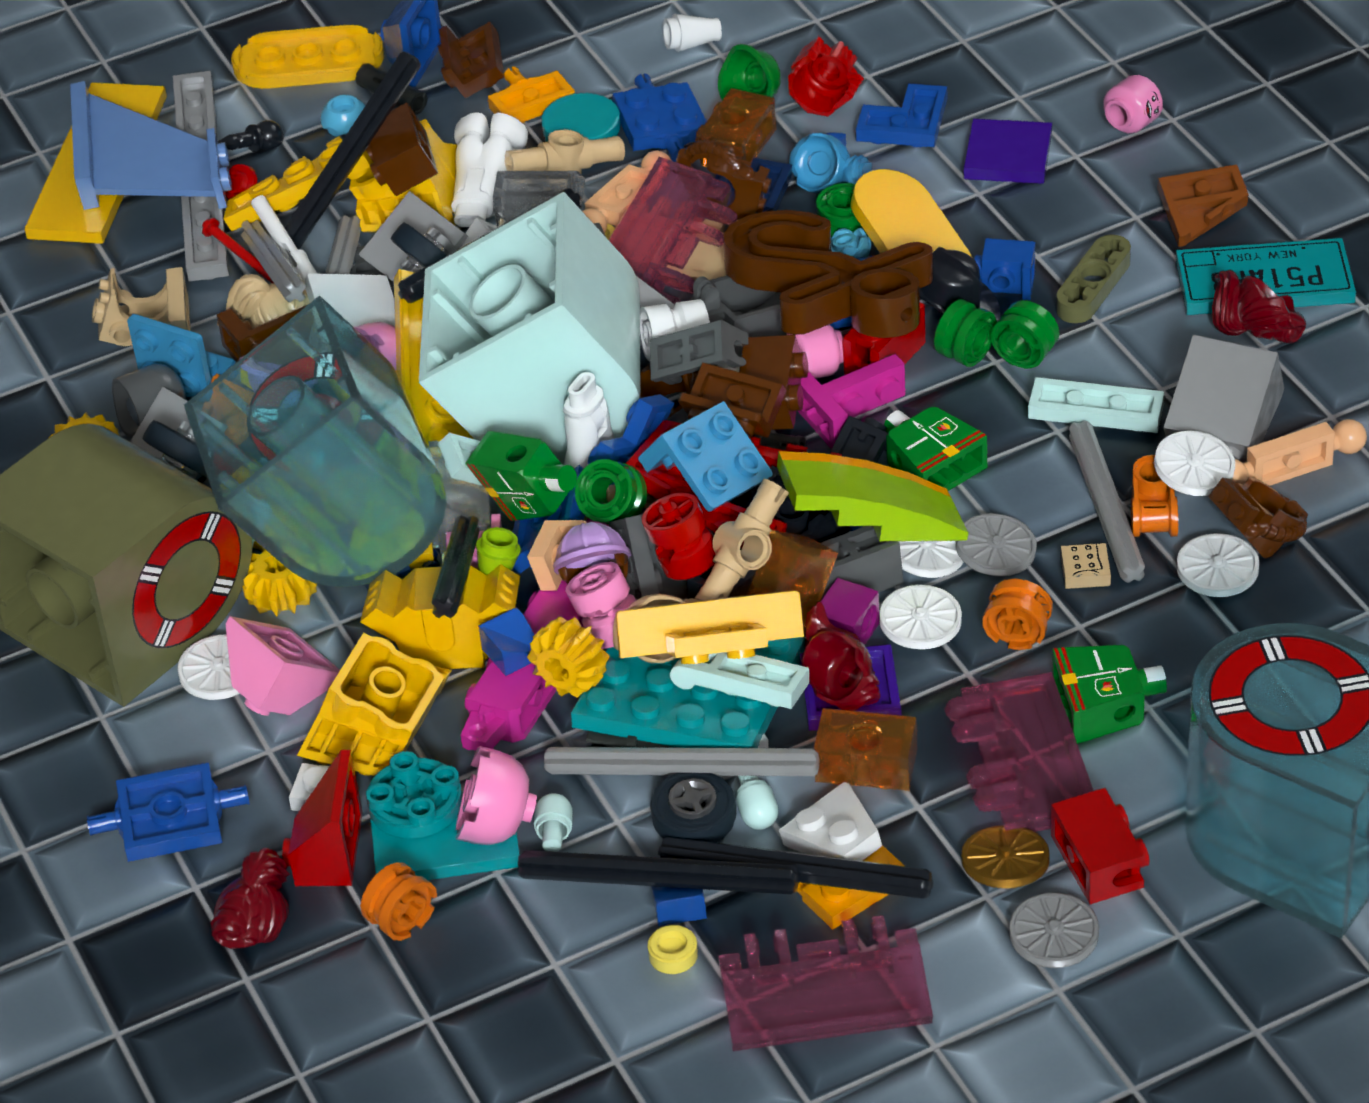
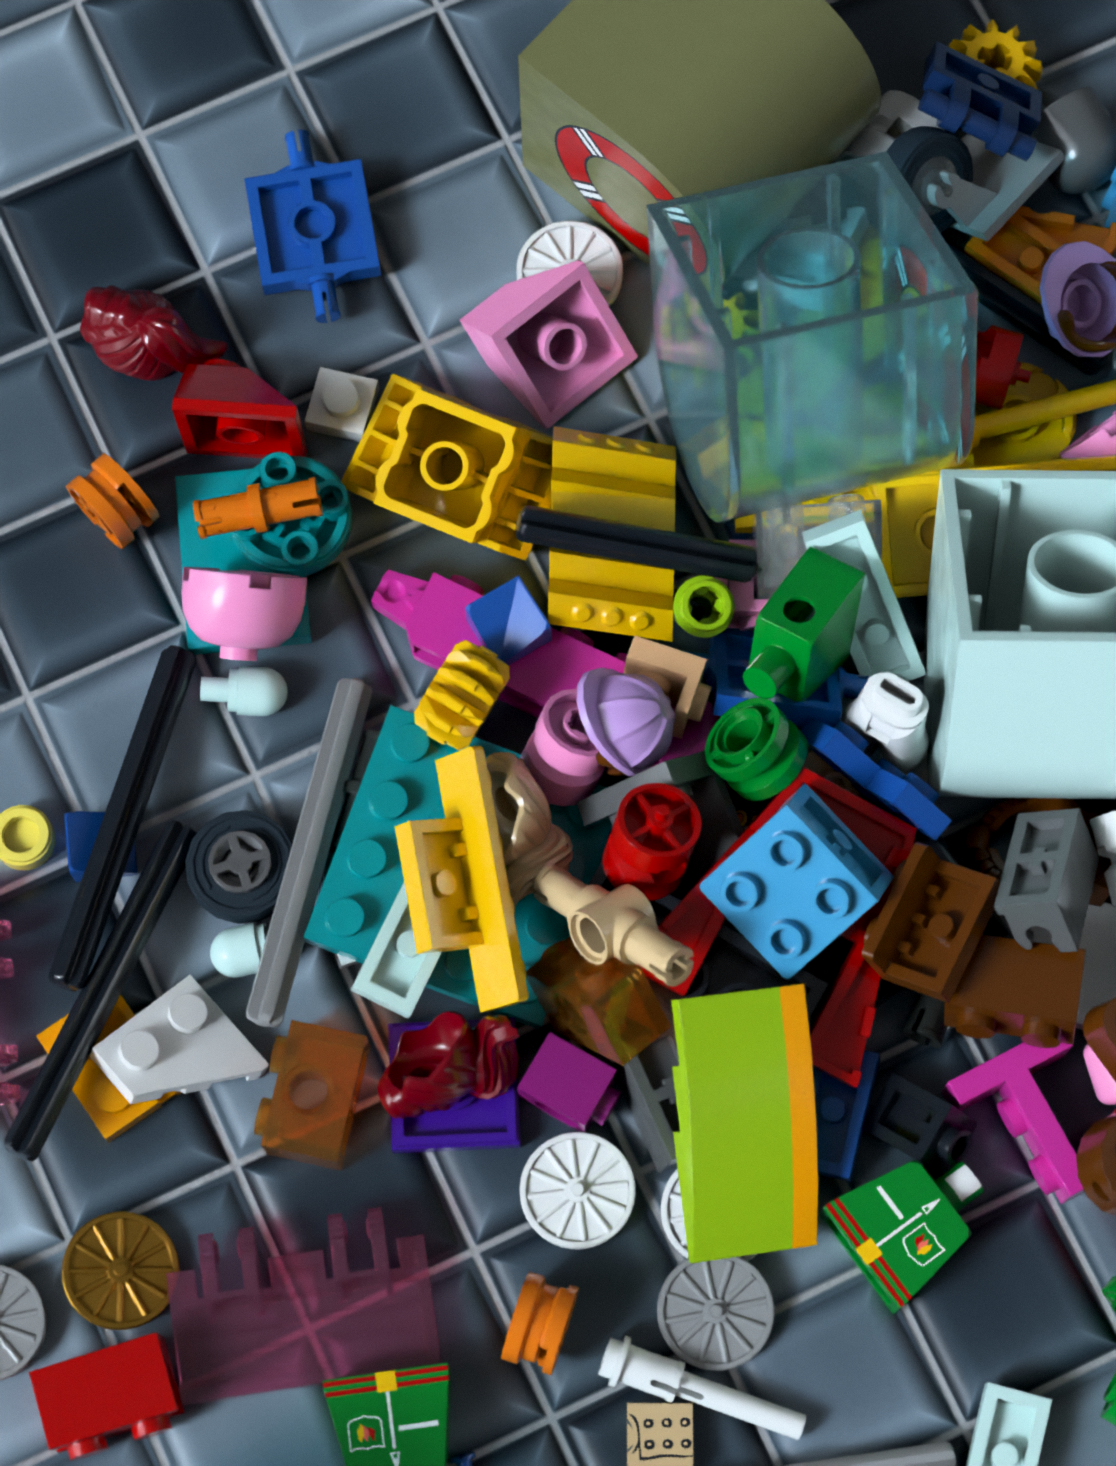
camera: 90 degrees right, 30 degrees up
(136, 410) = (980, 102): none -> dark blue plate
(416, 787) = (257, 508): none -> orange pin
(1047, 556) = (668, 1379): none -> white pin

